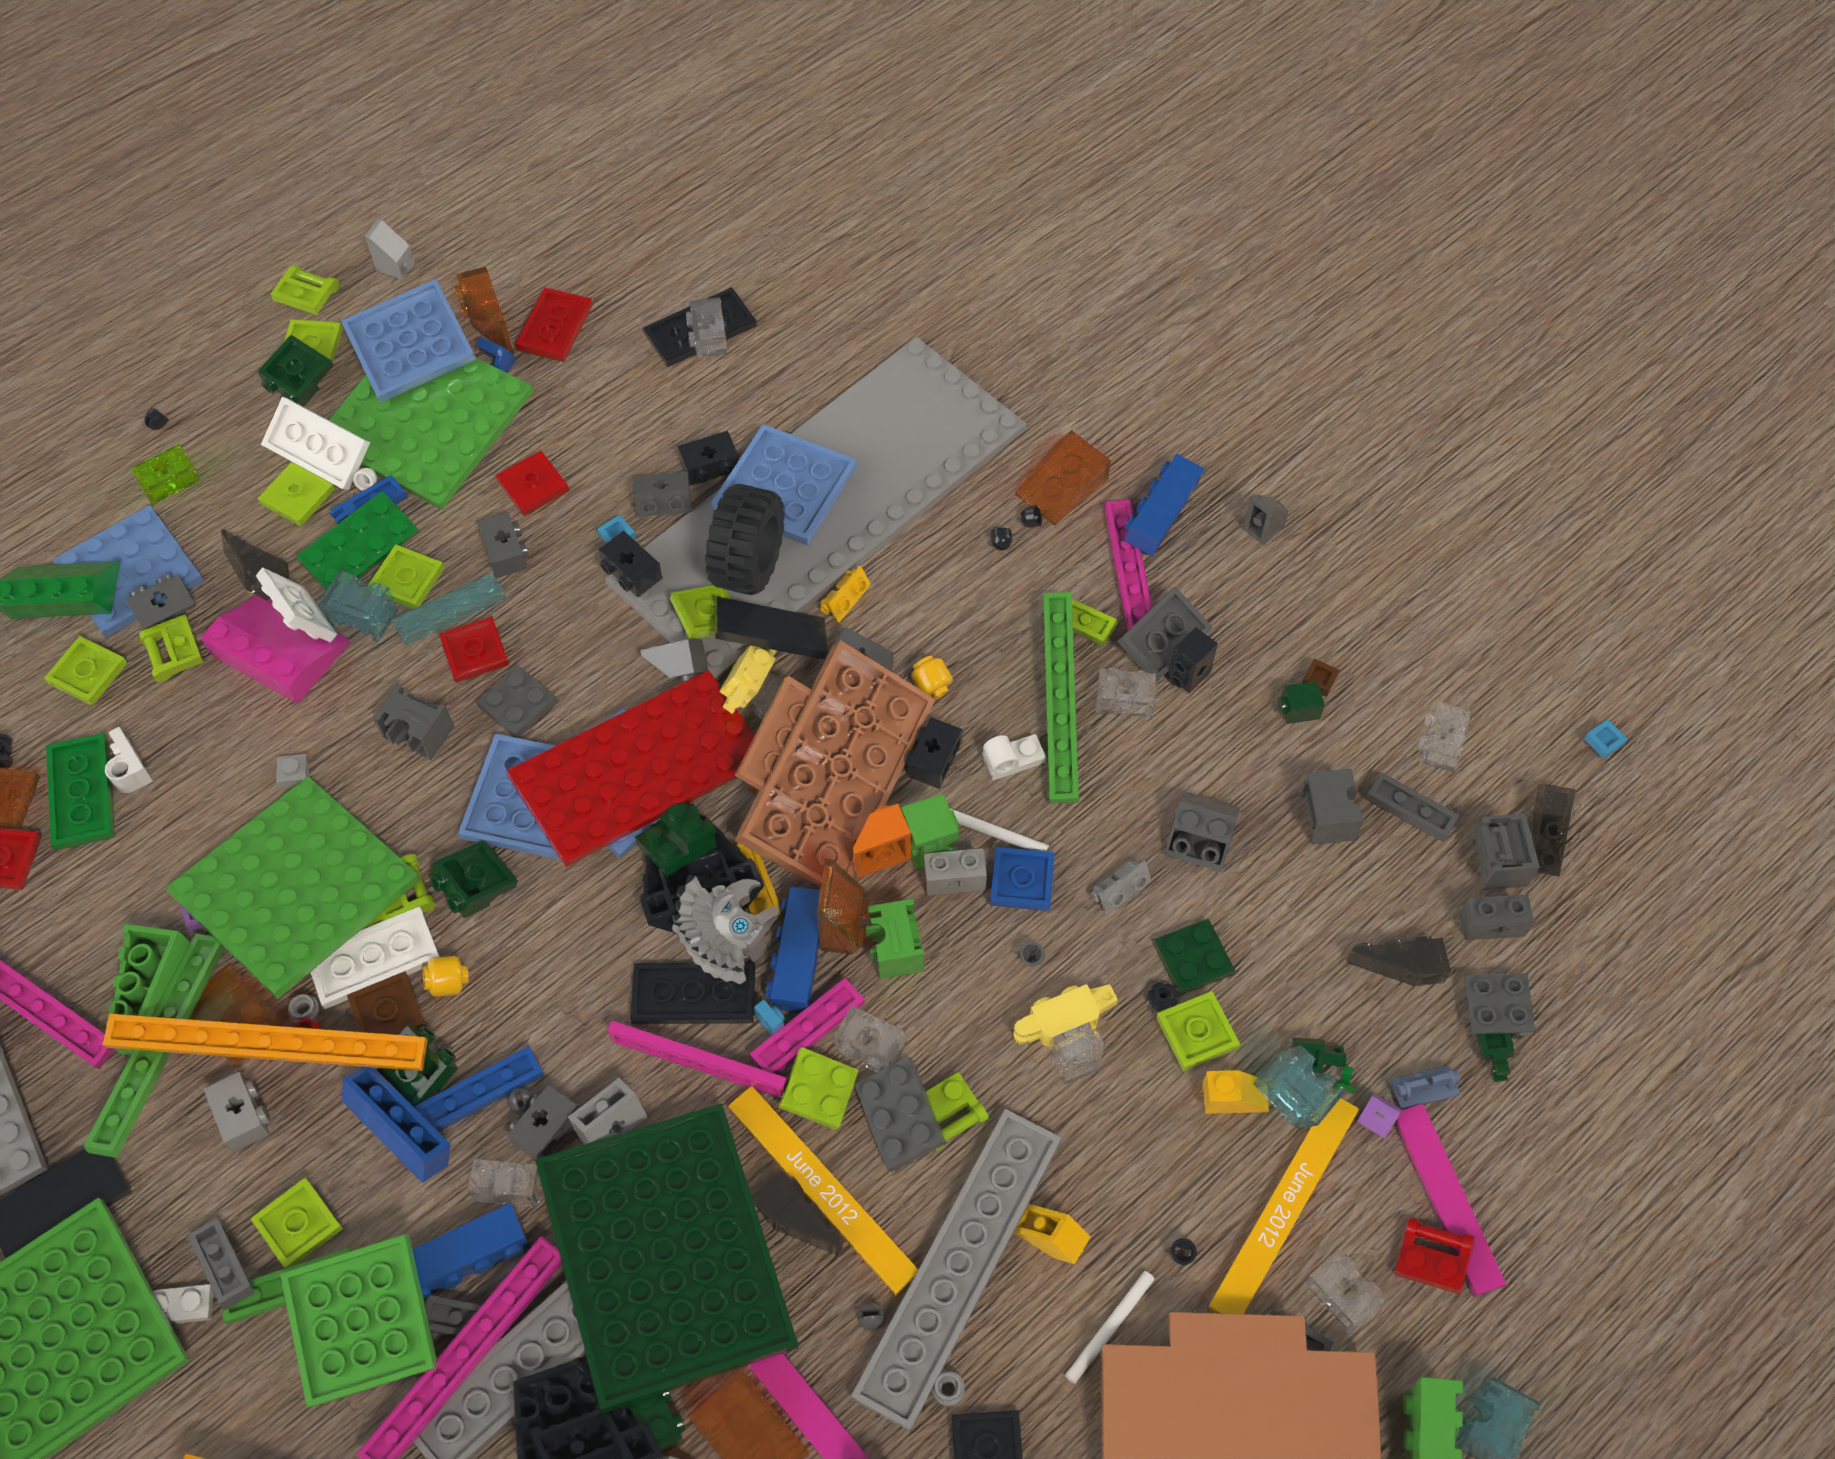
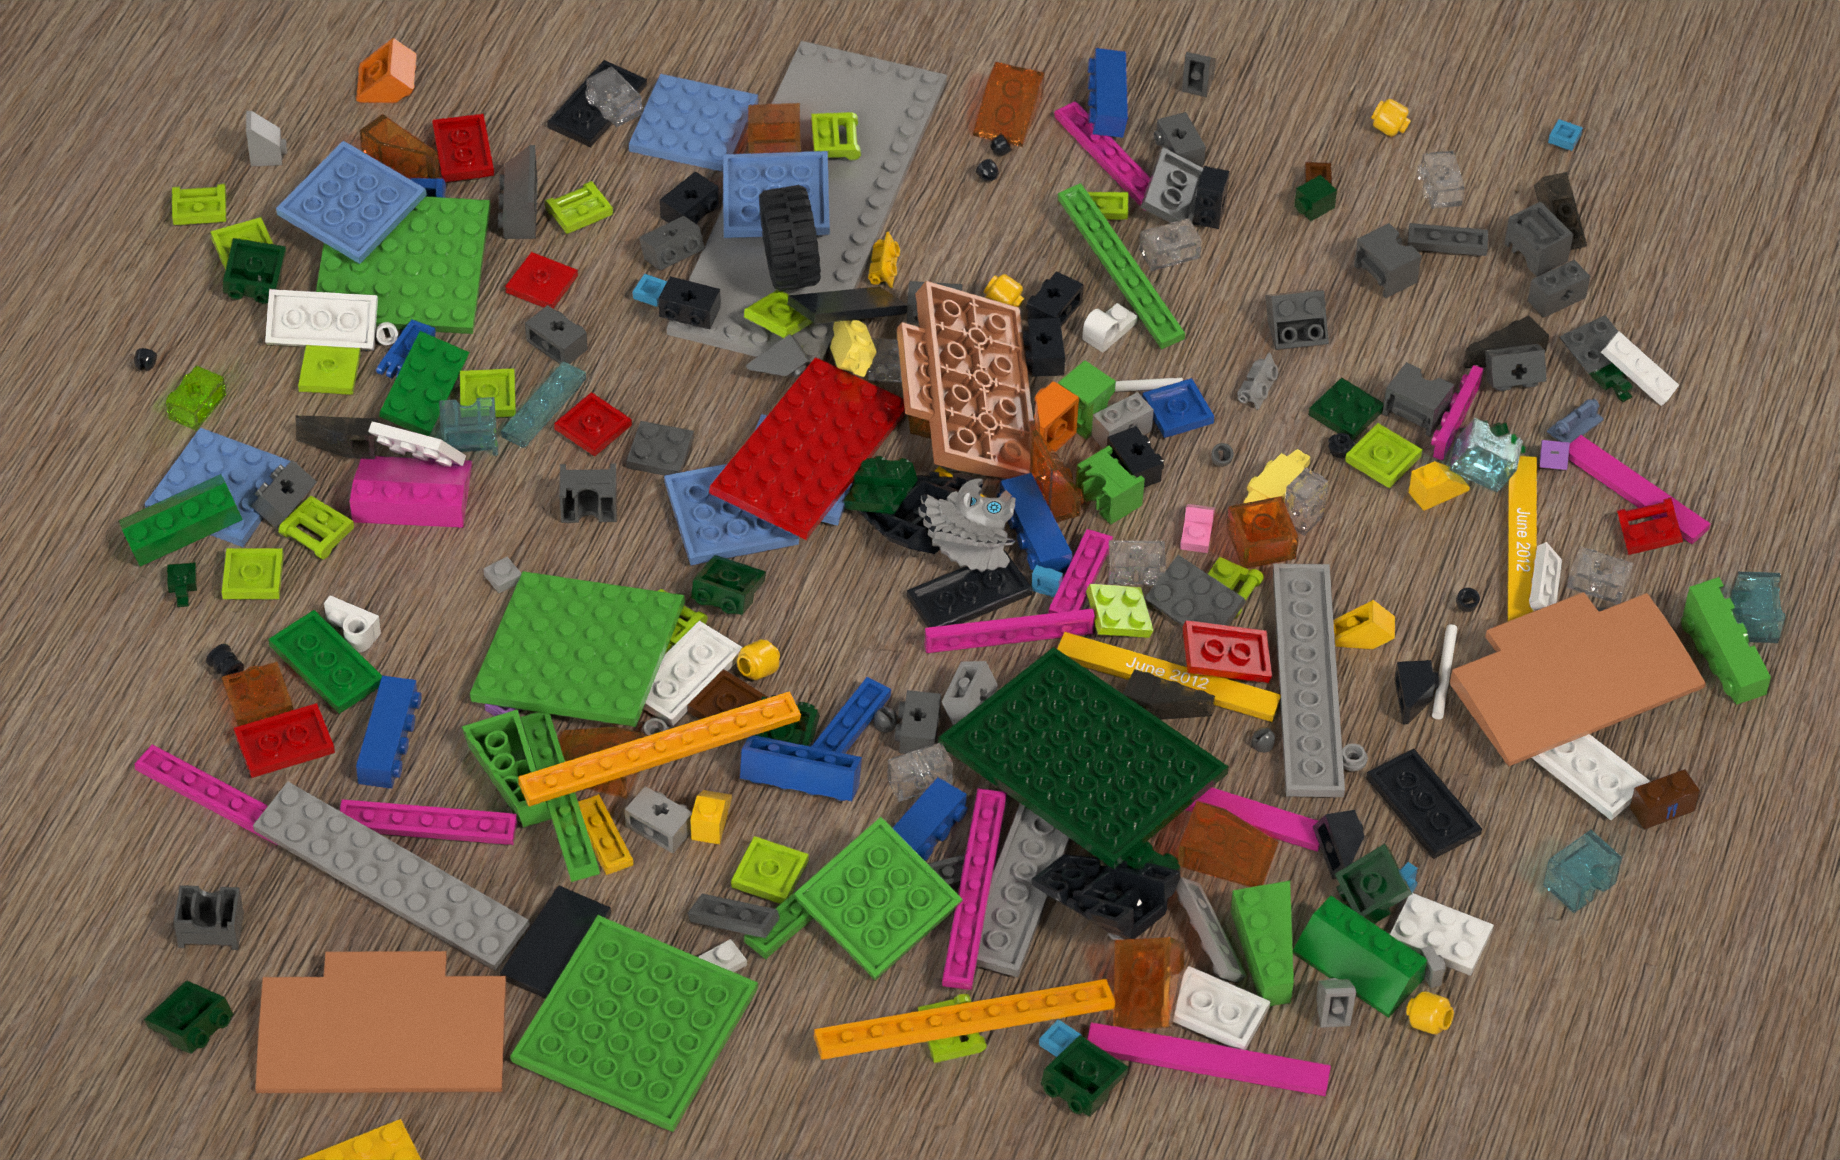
camera: 30 degrees left, 10 degrees down
(27, 649) = (181, 580): none -> dark green plate
(74, 892) = (388, 732): none -> blue brick
(182, 1100) = (604, 836): none -> yellow tile
(287, 1127) = (709, 816): none -> yellow slope
(540, 229) = (387, 74): none -> orange slope
(565, 393) = (519, 196): none -> dark grey slope
(614, 427) = (579, 208): none -> lime plate
(769, 379) = (692, 122): none -> medium blue plate
(826, 416) = (774, 128): none -> clear orange slope
(871, 440) = (826, 134): none -> lime plate
(891, 1194) = (1227, 651): none -> plate
(938, 933) = (1136, 455): none -> black brick
(960, 1025) = (1197, 528): none -> bright pink slope
(975, 706) = (1056, 298): none -> black brick
(1012, 1067) = (1262, 532): none -> clear orange brick
(1062, 1335) = (1414, 687): none -> black slope
(1204, 582) = (1180, 137): none -> dark grey brick
(1267, 984) = (1418, 398): none -> dark grey piece
(1278, 1271) = (1545, 577): none -> white plate
(1312, 1008) = (1459, 407): none -> dark pink plate
(1395, 991) = (1504, 360): none -> dark grey brick
(1431, 645) = (1390, 117): none -> yellow head
(1530, 1055) = (1639, 368): none -> white plate

